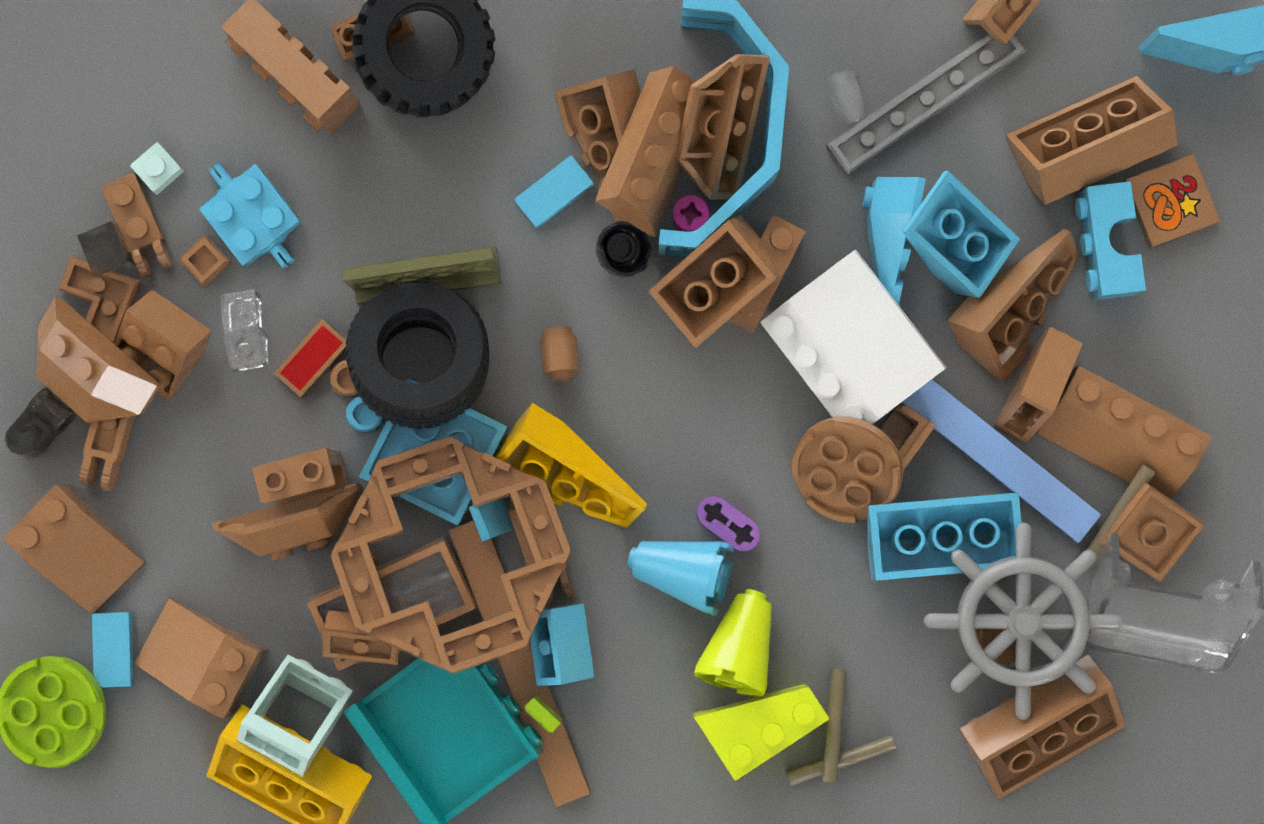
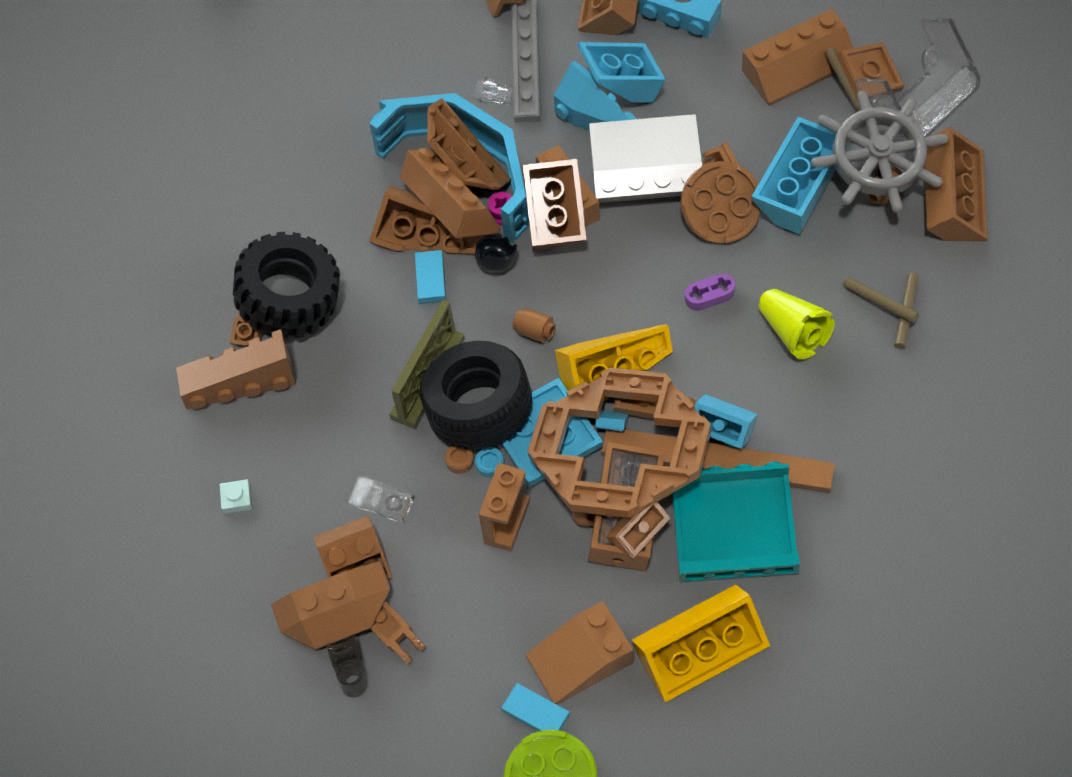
camera: 55 degrees left, 25 degrees down
(74, 548) = (448, 691): medium nougat slope -> none
(105, 249) = (264, 550): clear smoke panel -> none
(109, 293) = (288, 574): medium nougat tile -> none
(136, 221) = (261, 529): medium nougat hinge -> none
(205, 261) = (317, 502): medium nougat tile -> none
(251, 215) = (310, 456): medium azure plate -> none
(280, 744) = (669, 615): light aqua window -> none
(292, 524) = (530, 543): medium nougat wedge -> none
(311, 358) = (430, 472): red tile -> none
(543, 714) = (762, 453): lime tile -> none
(685, 570) = (723, 324): medium azure cone -> none
(760, 727) = (854, 339): neon yellow wedge -> none
(1003, 461) = (773, 127): light blue tile -> none
(1014, 302) = (684, 83): medium nougat wedge -> none
(1039, 385) = (741, 83): medium nougat slope -> none

